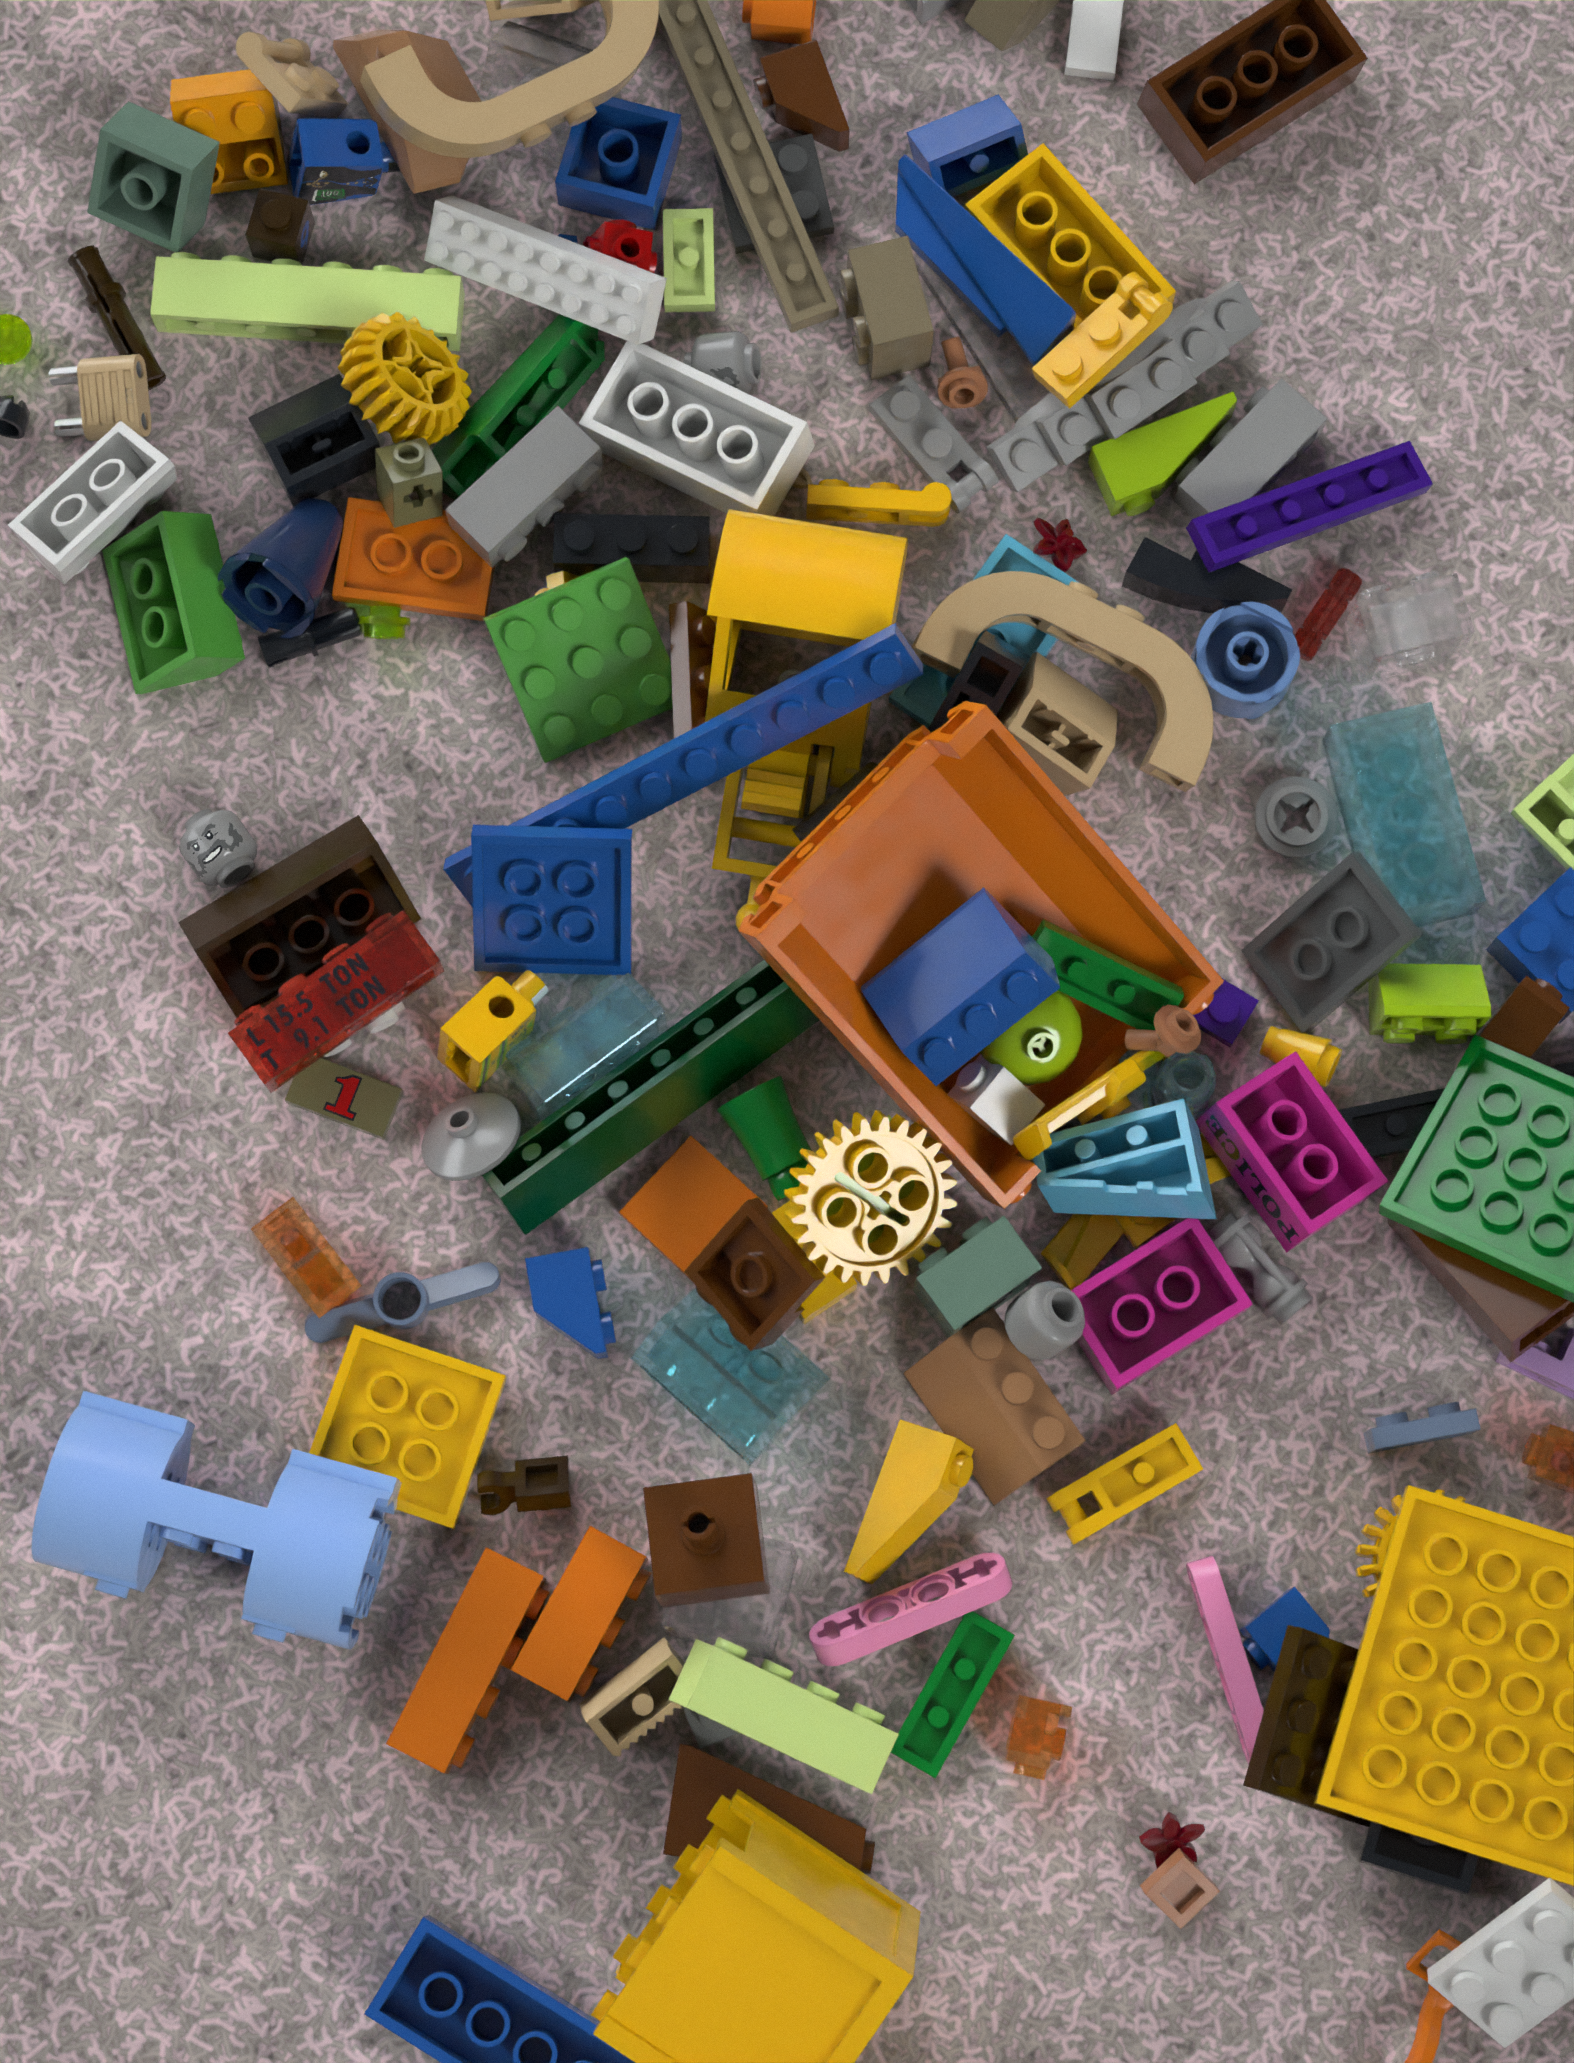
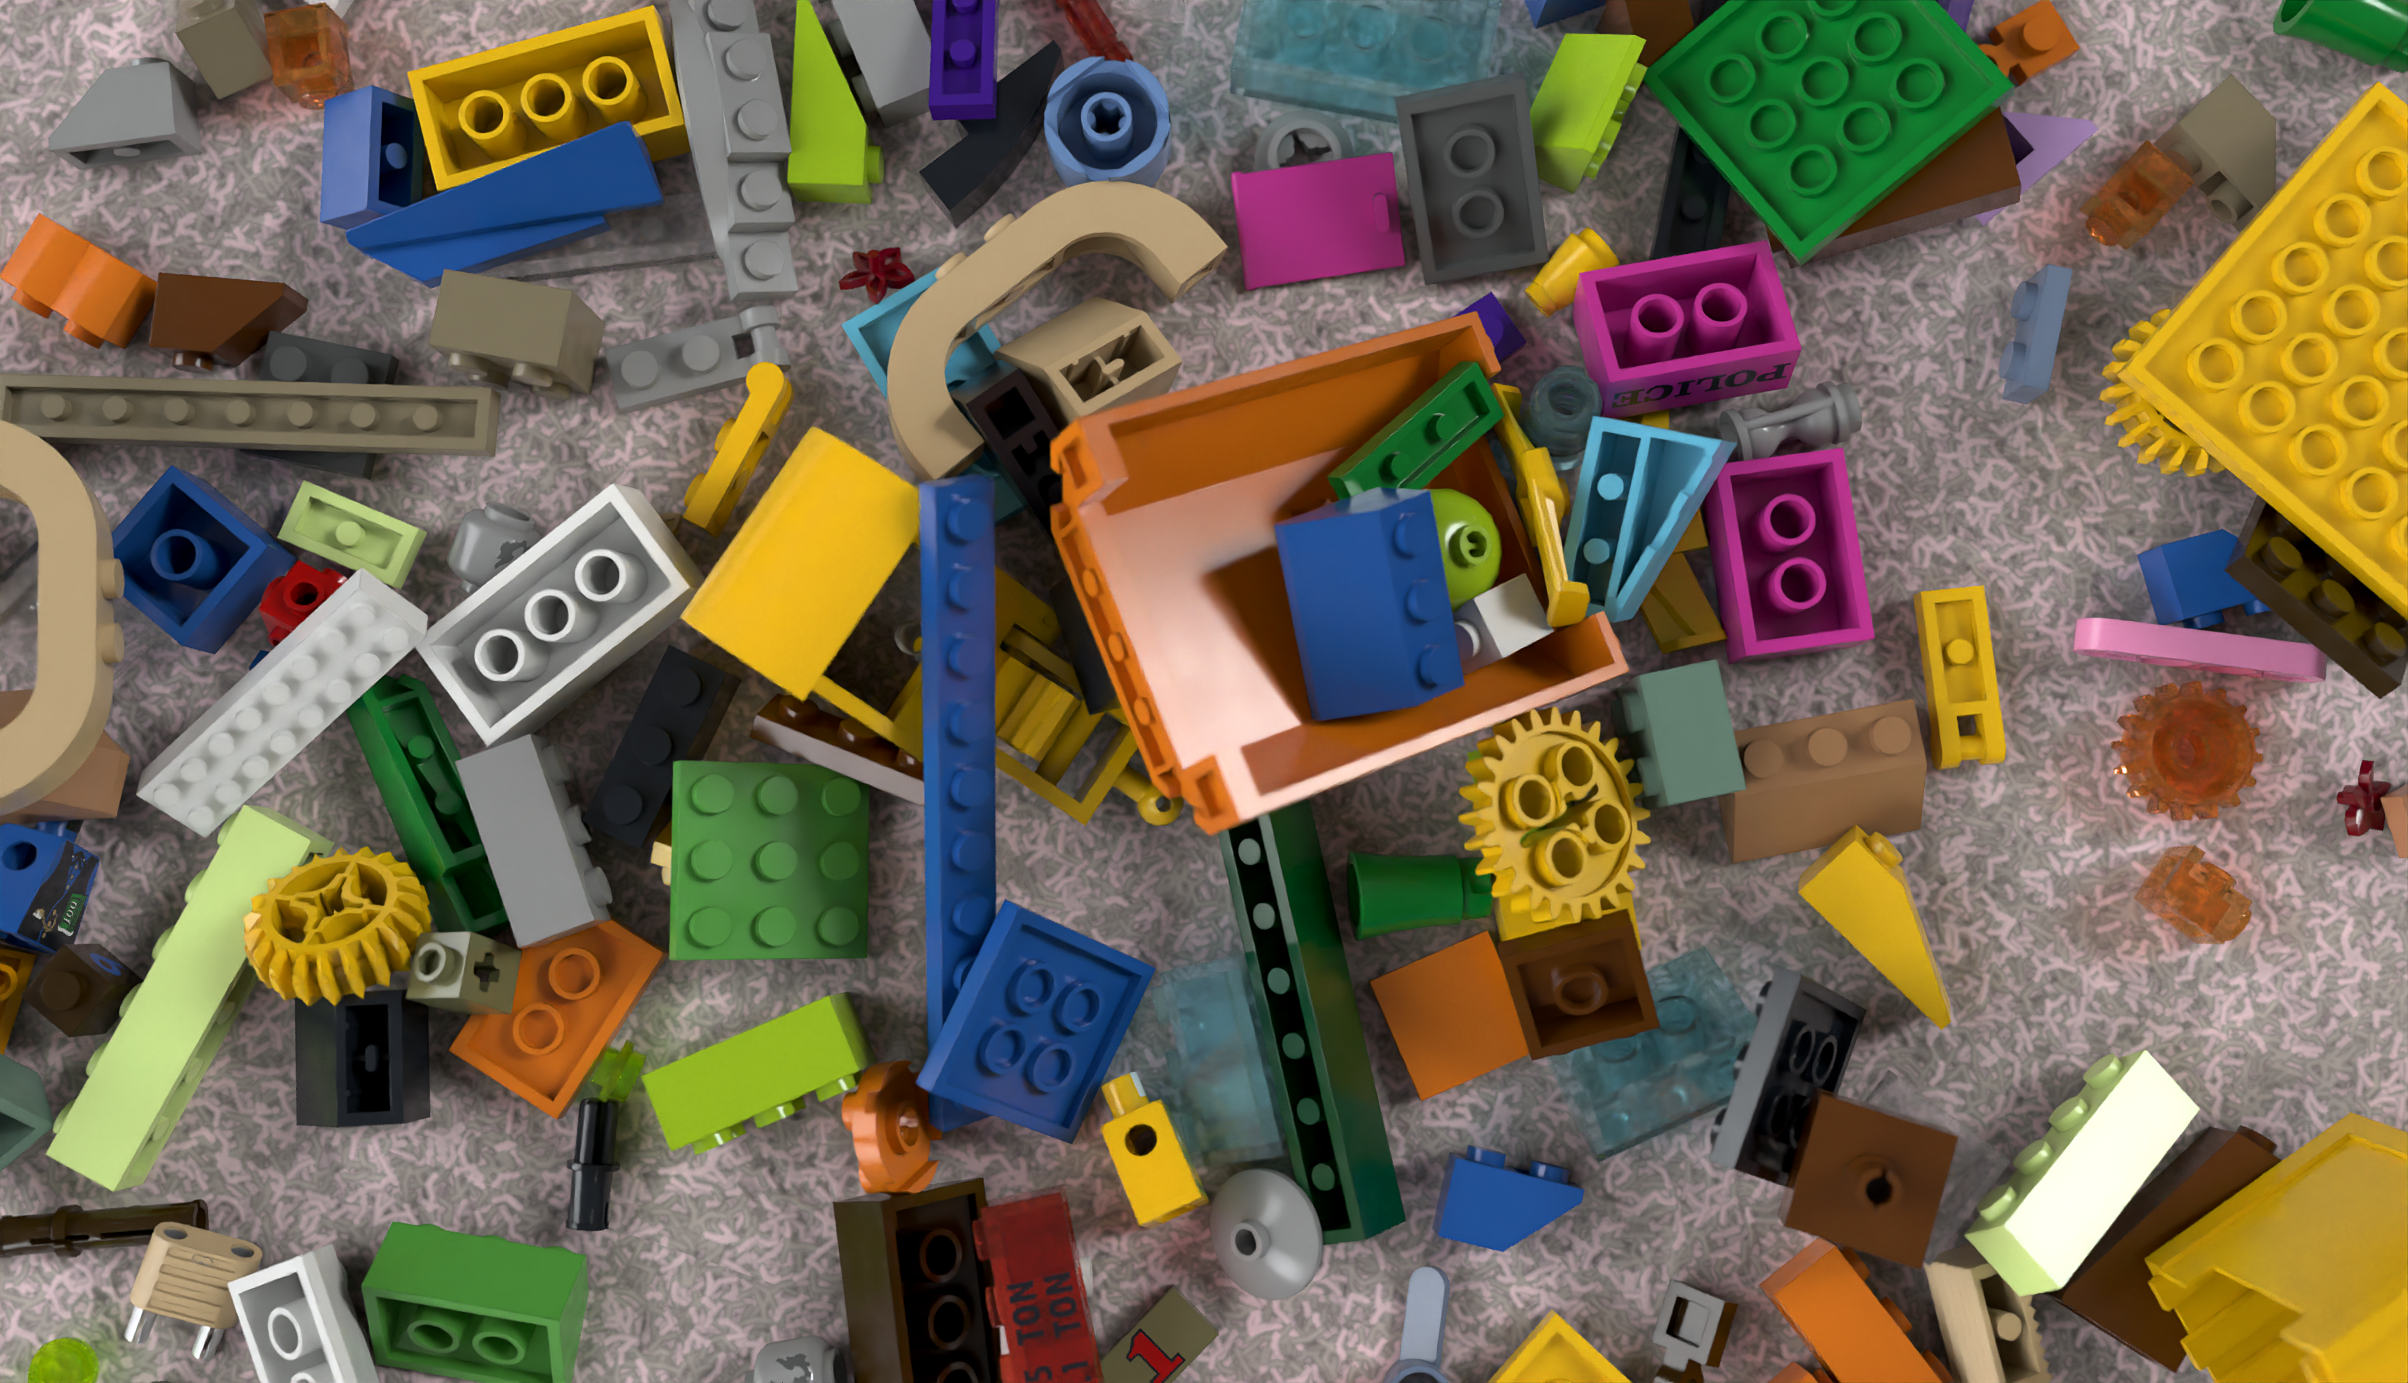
camera: 65 degrees left, 5 degrees up
(284, 569) = (499, 1163): dark blue cone -> none
(408, 834) = (891, 1130): none -> orange plate
(430, 721) = (760, 1074): none -> lime brick
(779, 1443) = (1797, 1045): none -> black plate
(951, 1693) = (2110, 967): green plate -> none
(960, 380) = (645, 295): nougat plate -> none
(963, 1587) = (2015, 972): bright pink beam -> none
(1030, 53) = (298, 41): none -> clear orange brick
(1044, 1320) = (1771, 683): light grey head -> none
(1102, 340) = (673, 109): yellow plate -> none
(1174, 1032) = (1519, 392): nougat plate -> none
(1175, 1673) = (2220, 742): none -> clear orange gear
(1252, 847) = (1318, 220): none -> dark pink container

